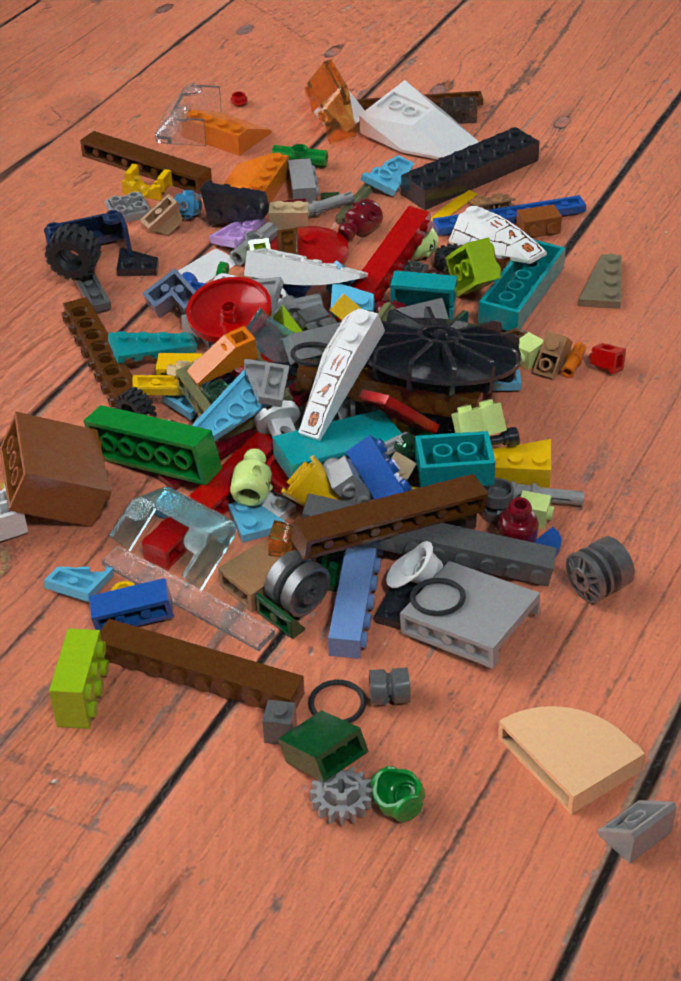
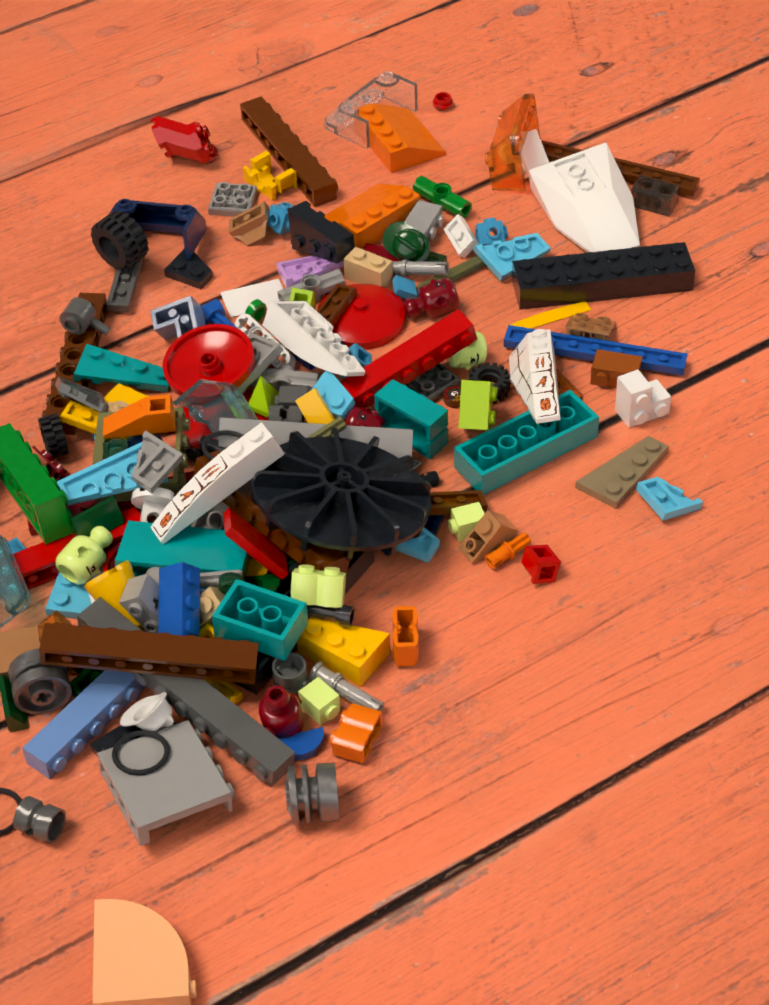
camera: 30 degrees right, 5 degrees up
(55, 176) = (184, 140): none -> red brick
(86, 316) = (79, 315): none -> dark grey piece
(128, 366) = (81, 393): none -> dark grey wing
(237, 447) = (102, 514): none -> dark green slope
(304, 188) = (406, 242): none -> dark green piece
(327, 221) = (404, 287): none -> dark azure tile
(339, 175) = (461, 236): none -> white plate
(360, 164) = (490, 225): none -> dark azure brick
(564, 439) = (405, 636): none -> orange brick
(577, 231) = (639, 399): none -> white brick
(583, 519) = (356, 732): none -> orange brick
(652, 288) = (666, 499): none -> medium azure wing

